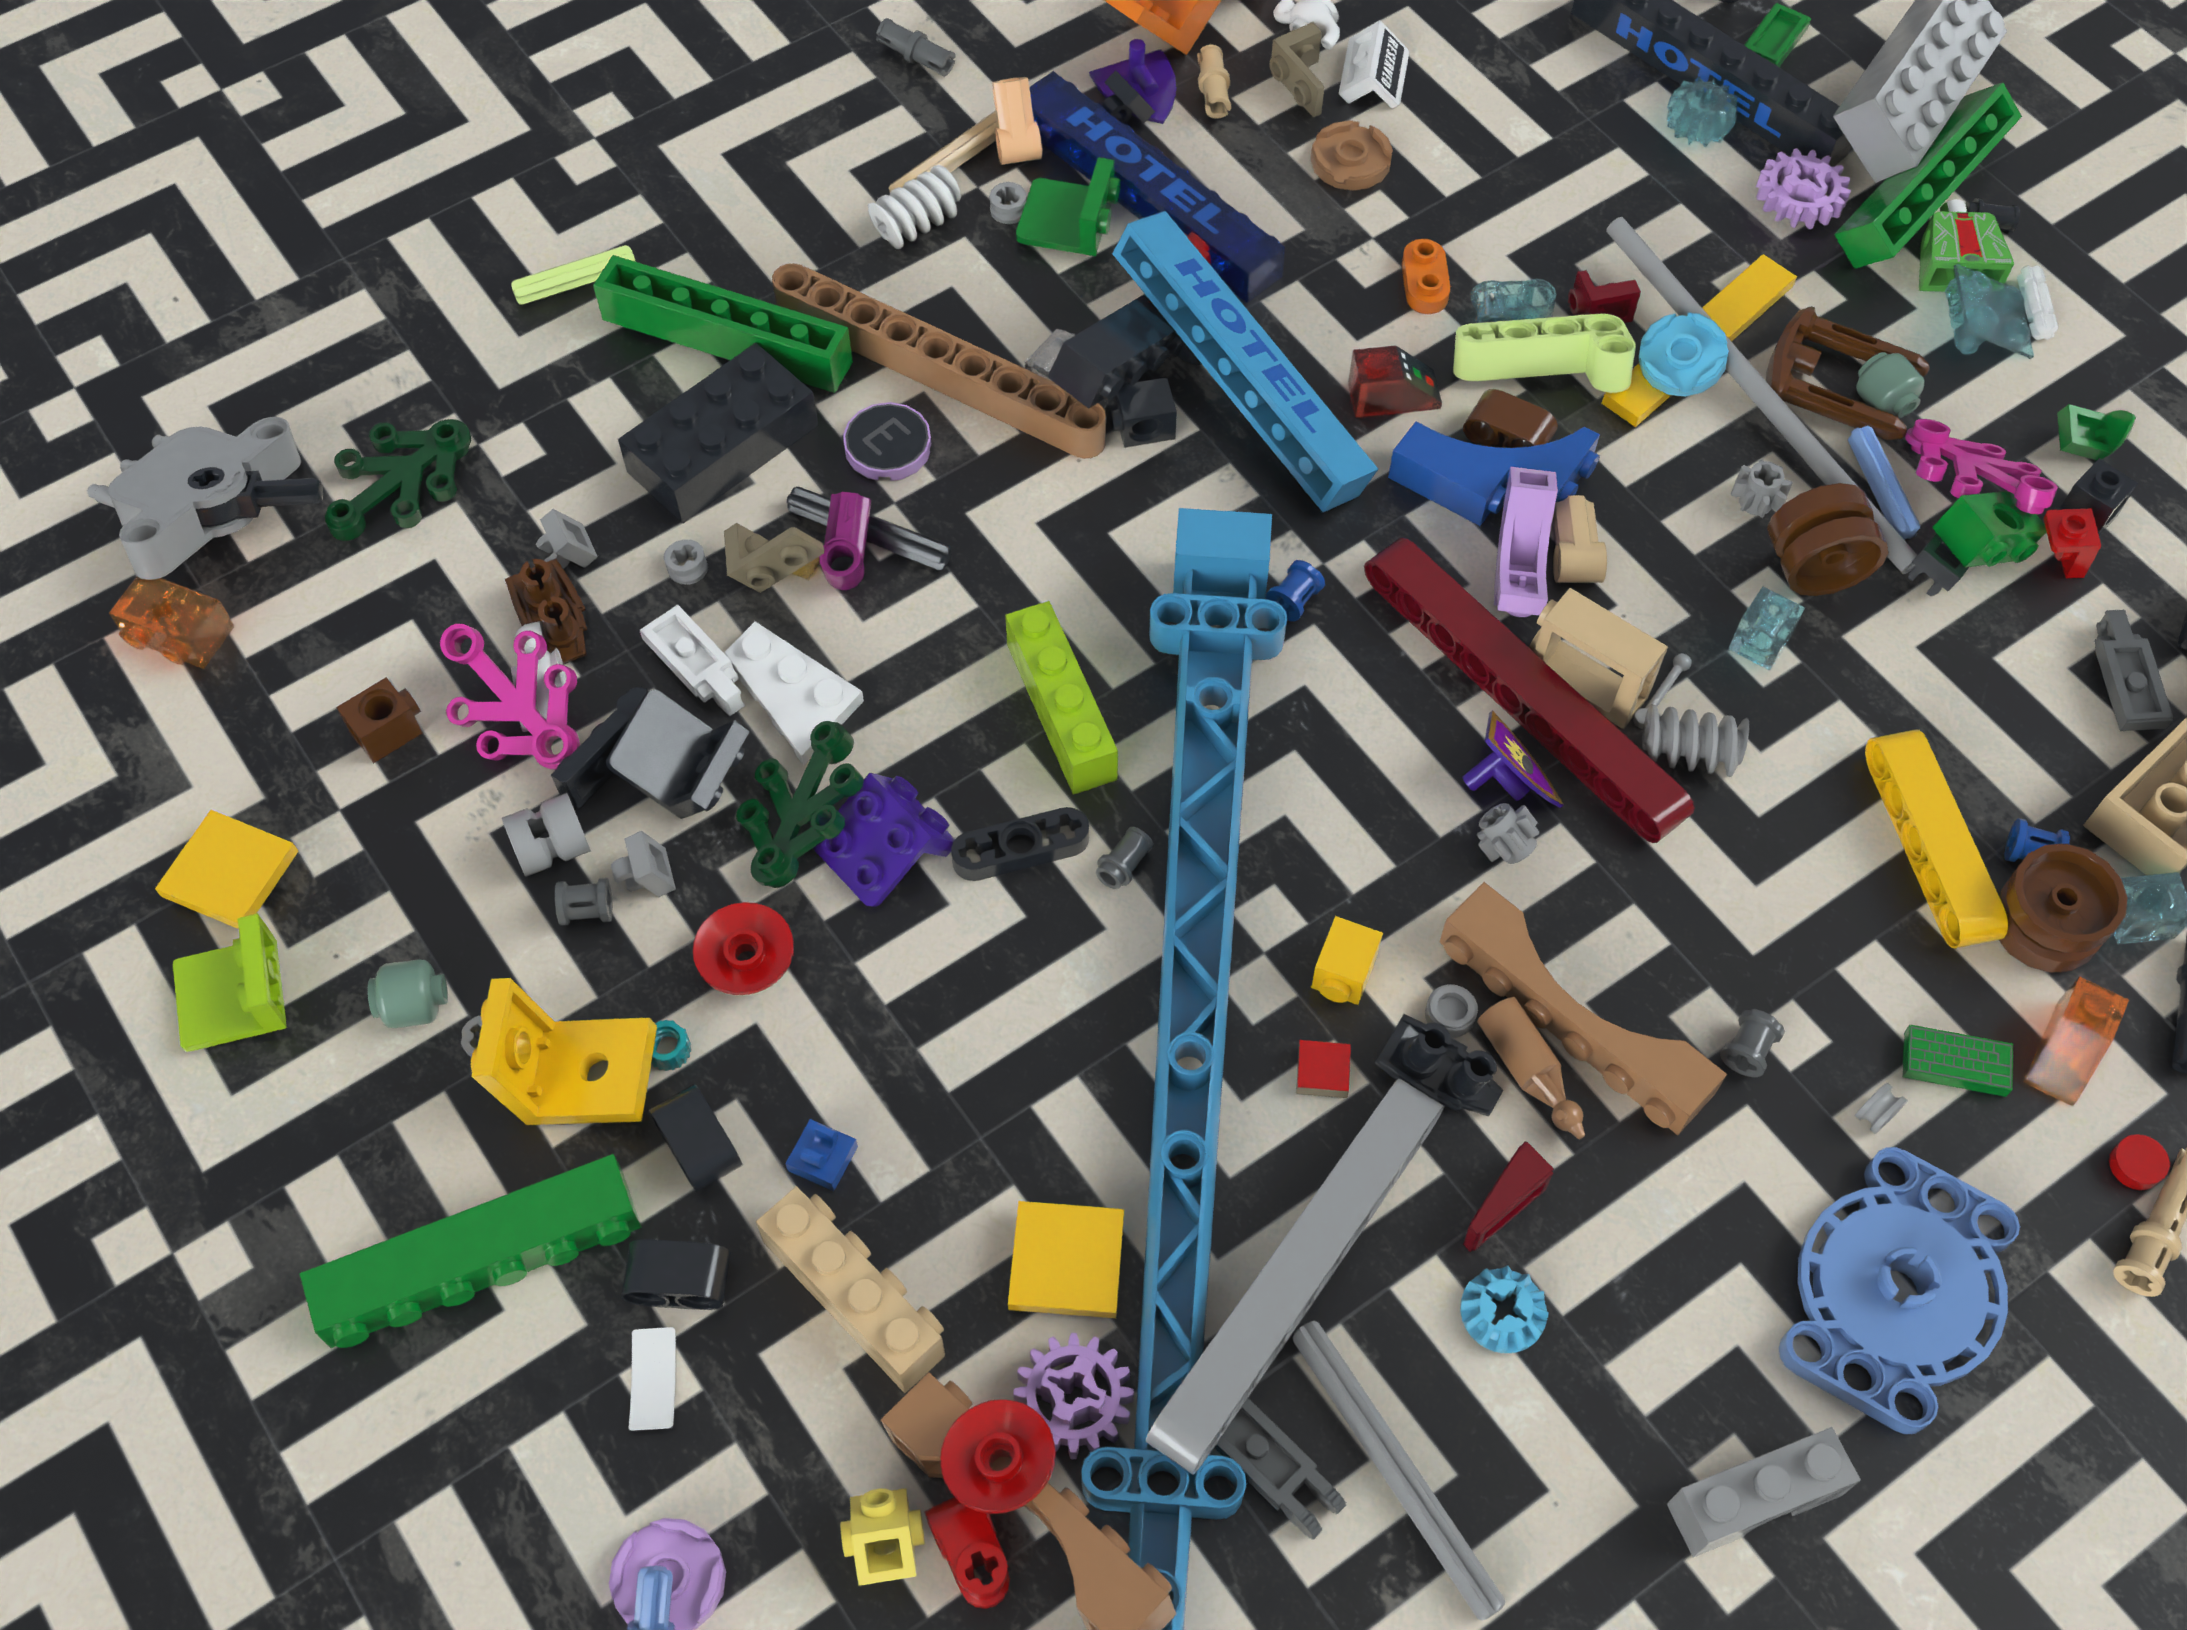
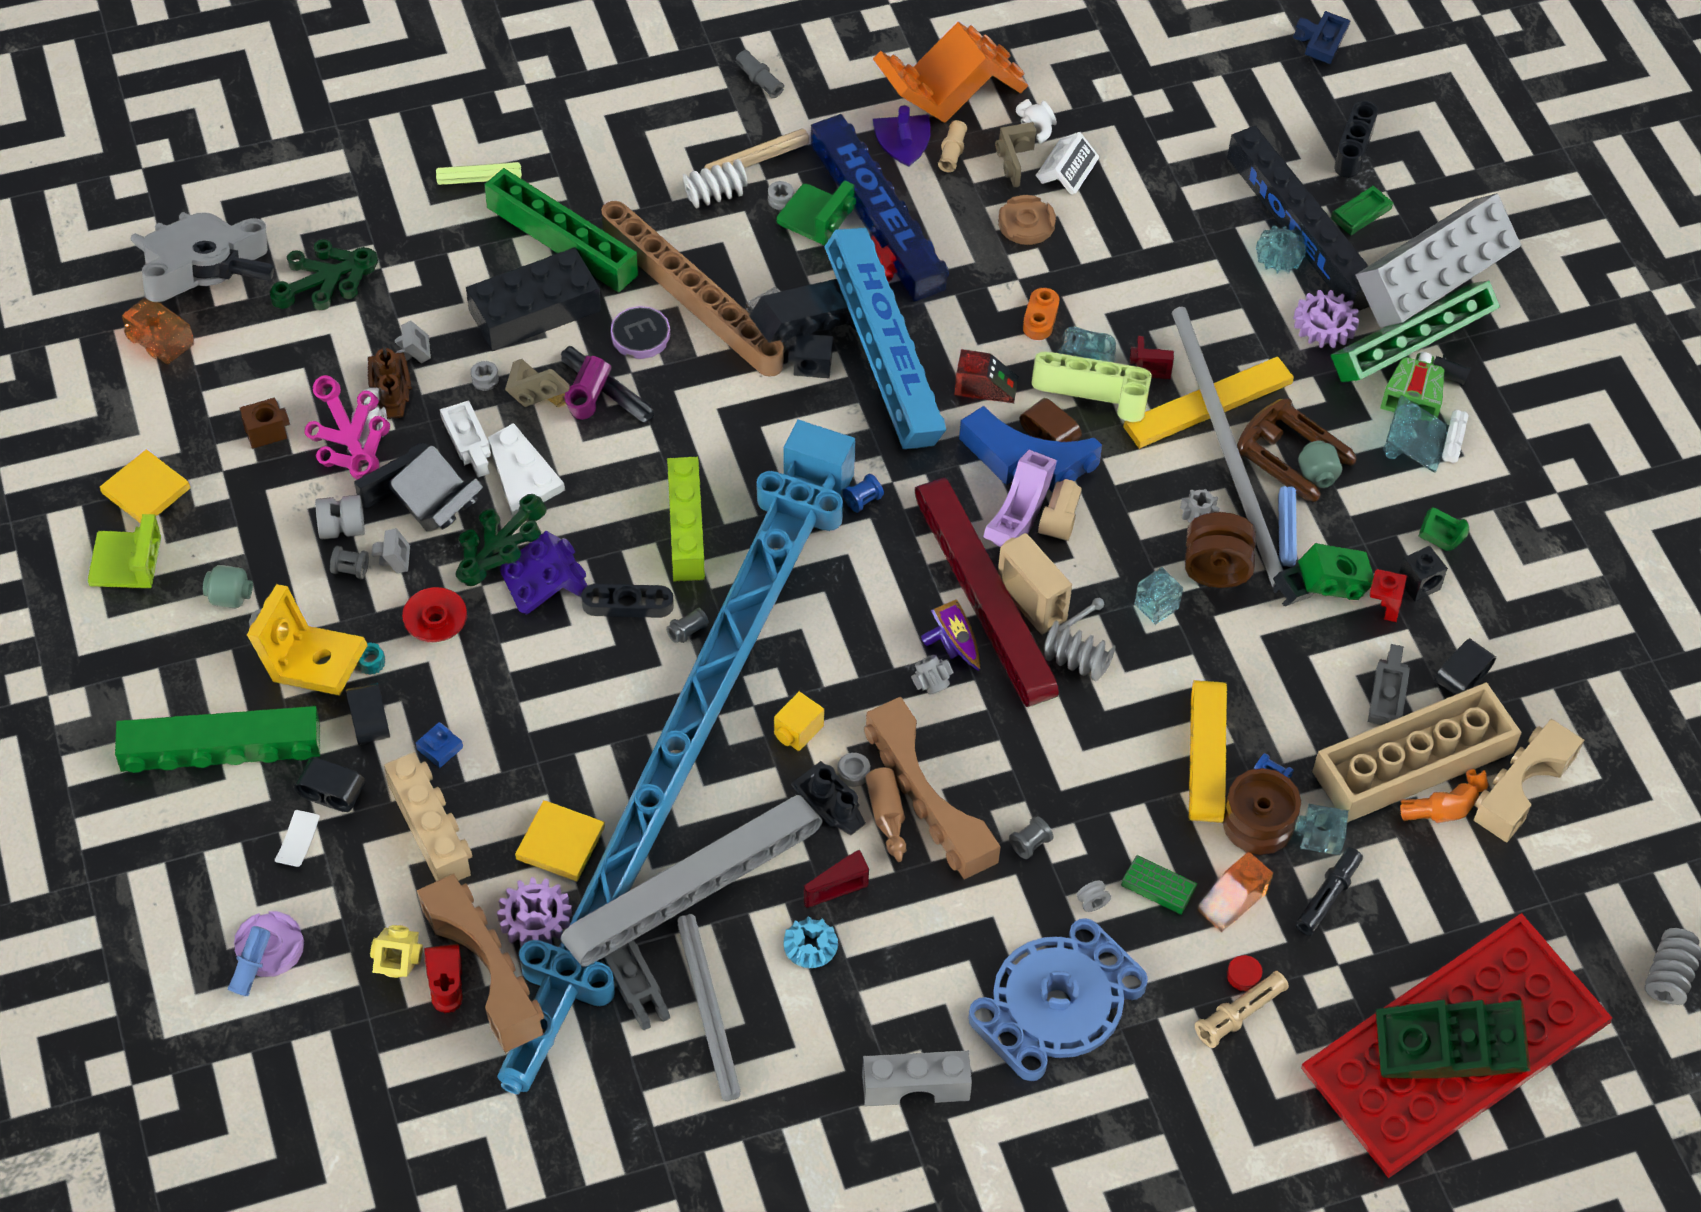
camera: 15 degrees right, 5 degrees down
(993, 1432) = (471, 919): red dish -> none
(1016, 131) = (803, 148): light nougat piece -> none
(1125, 101) = (885, 145): black tile -> none
(1323, 1069) = (759, 780): red tile -> none
(1683, 354) = (1185, 408): medium azure tile -> none
(1972, 458) = (1333, 506): dark pink plant -> none

